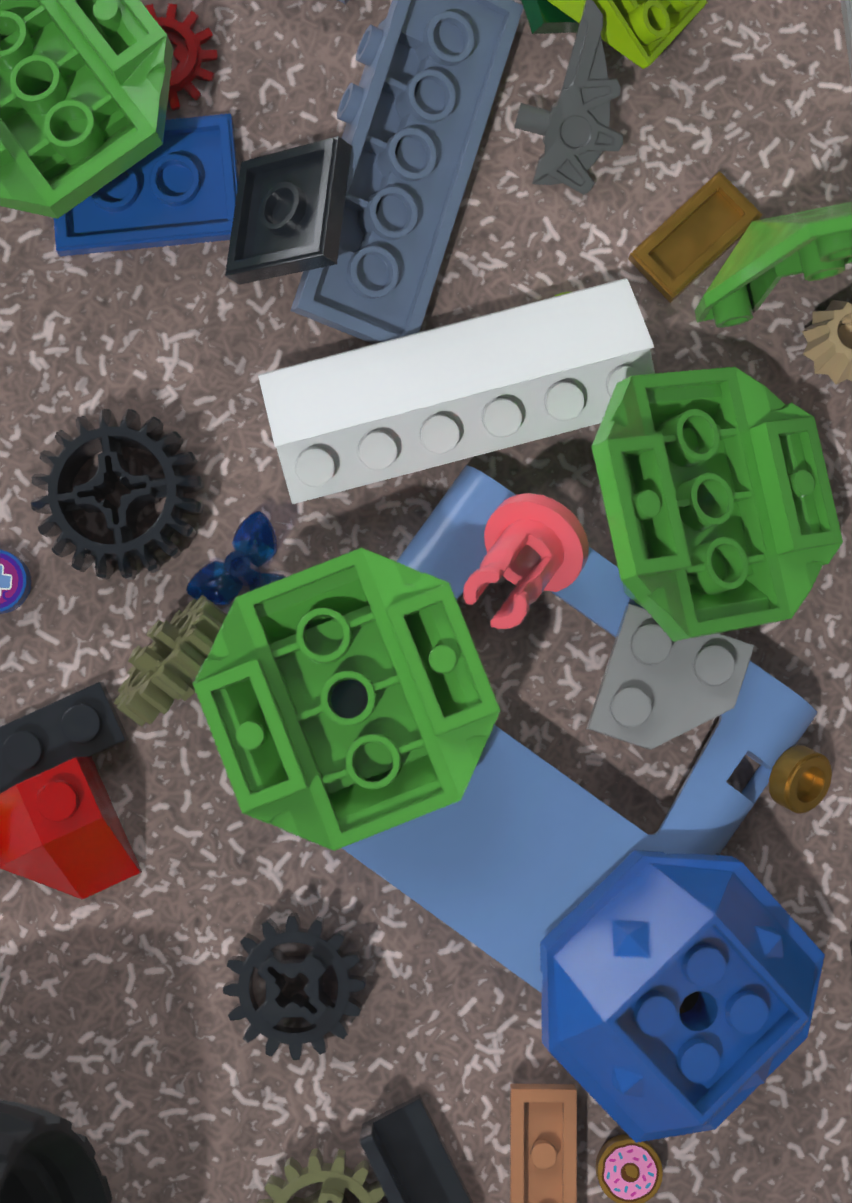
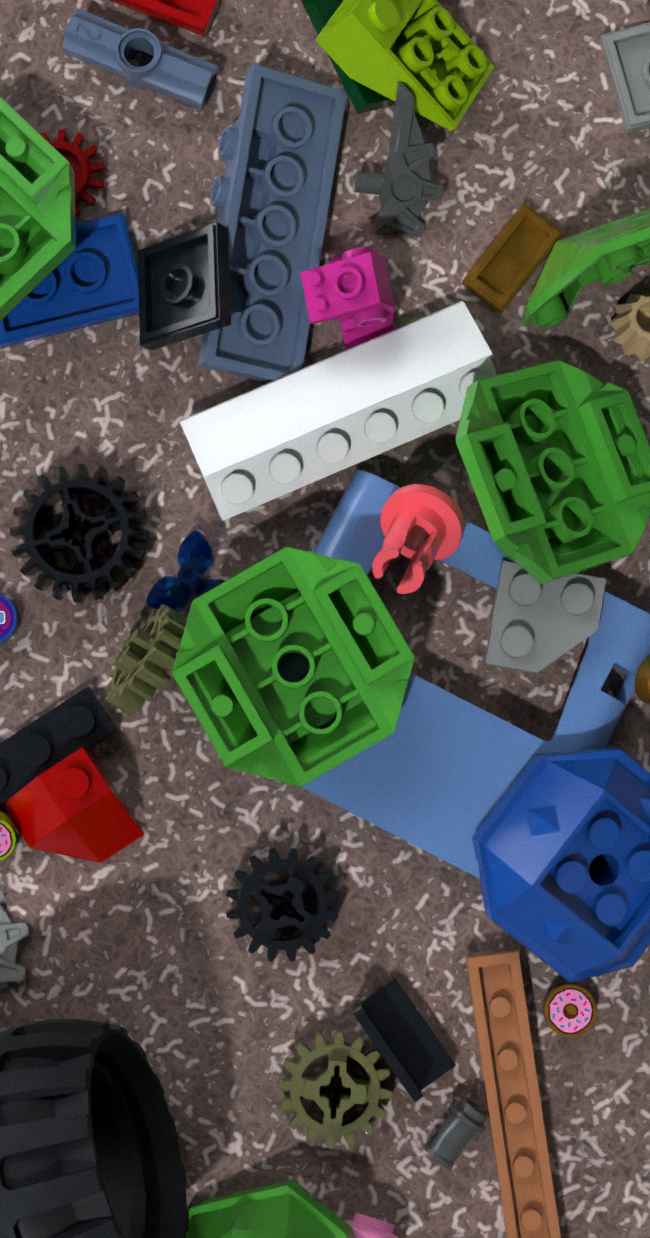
camera: 15 degrees left, 0 degrees up
(491, 242) = (351, 288): none -> dark pink tile

